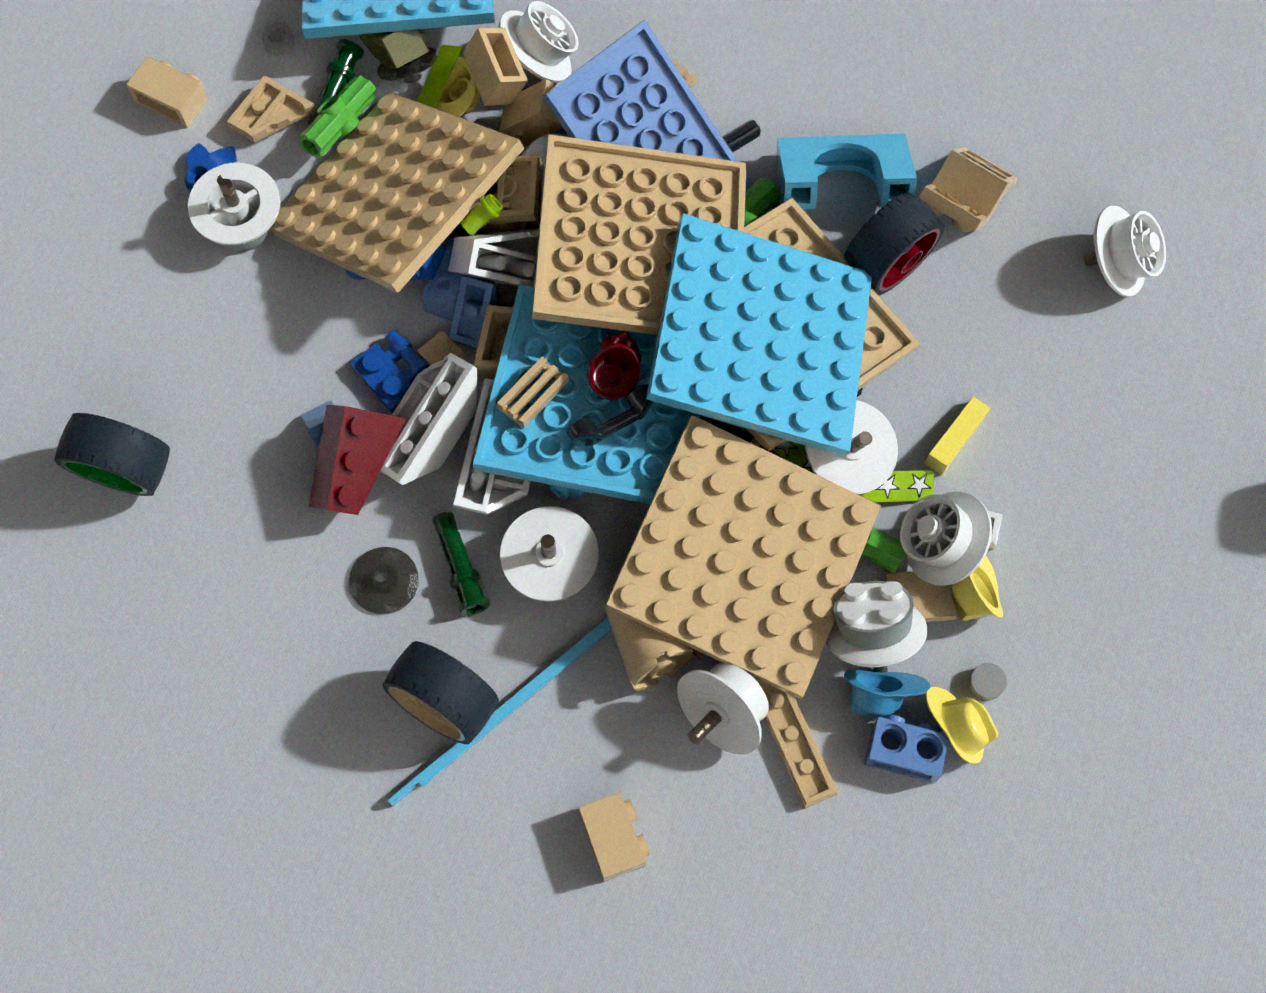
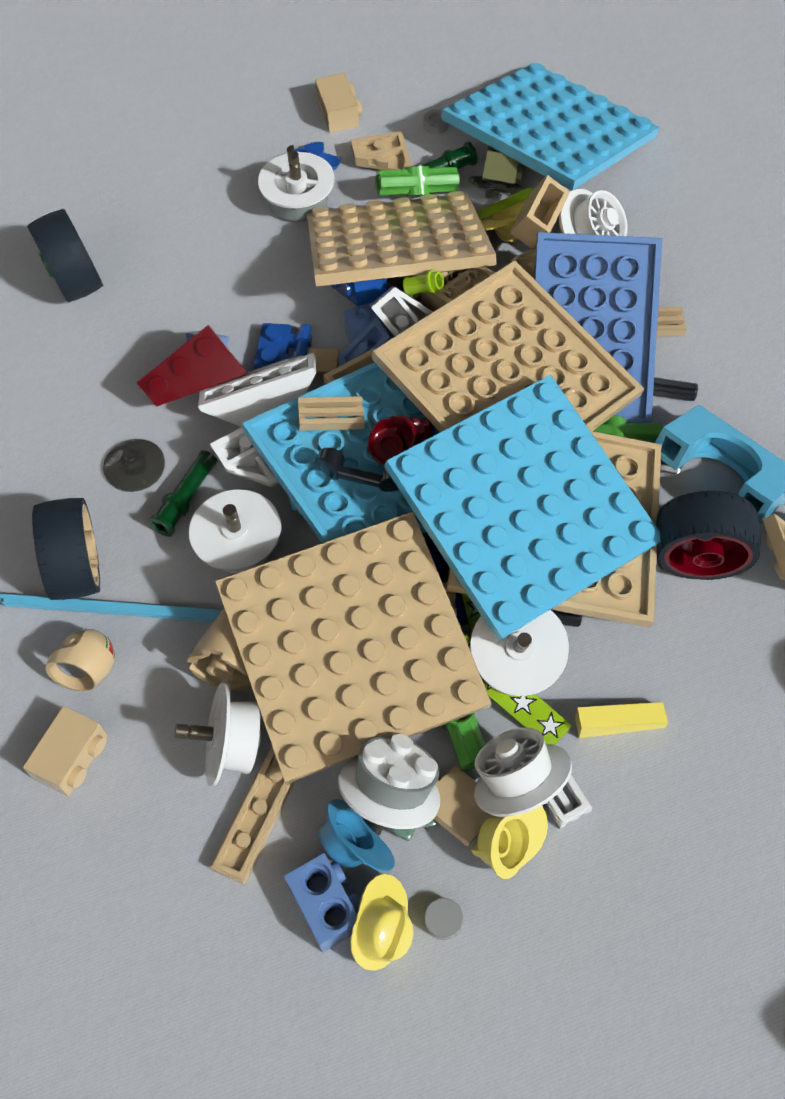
camera: 50 degrees right, 10 degrees down
(546, 754) = (86, 650): none -> tan helmet

